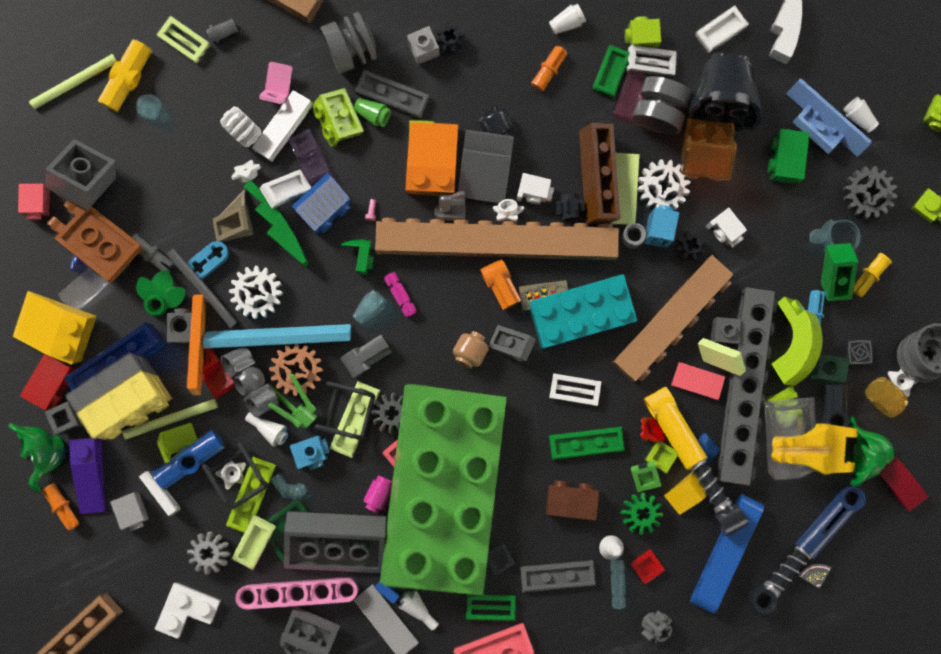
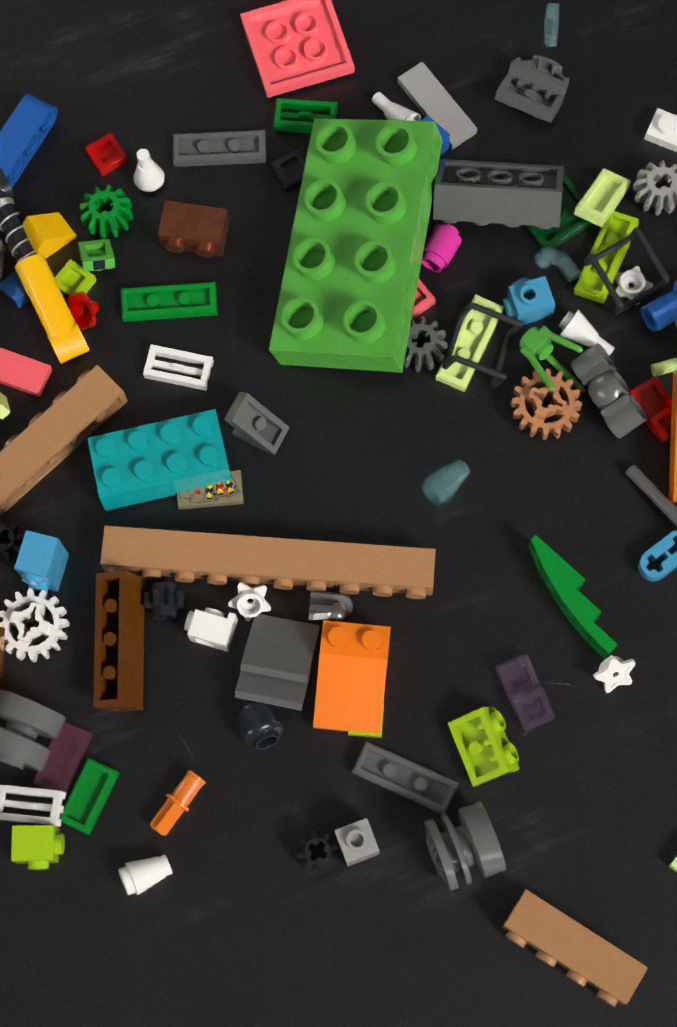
camera: 170 degrees left, 10 degrees down
(221, 30) = (651, 882): dark grey pin -> none
(234, 220) = (630, 607): dark tan slope -> none
(240, 127) = (622, 731): white gear -> none
(251, 300) = (610, 513): white gear -> none
(277, 83) = (570, 796): bright pink bracket -> none
(277, 336) = (571, 448): medium azure tile -> none
(282, 126) = (562, 736): white tile -> none
(285, 188) = (558, 642): white tile -> none
(285, 593) = (558, 128): bright pink beam -> none
(322, 204) = (507, 615): slope -> none
(361, 359) = (459, 413): dark grey piece -> none
(365, 260) = (450, 543): green plate -> none
(370, 216) = (441, 605): bright pink piece -> none
(374, 112) = (433, 750): bright green cone -> none
(400, 294) = (404, 497): dark pink axle -> none
(470, 350) = (313, 418): medium nougat head -> none
(498, 279) = (269, 510): orange piece -> none
(618, 584) = (145, 129): clear light blue axle -> none
(627, 178) = (81, 633): yellowish green tile -> none
(635, 227) = (73, 550): light grey beam -> none
(656, 627) = (101, 81): dark grey gear -> none

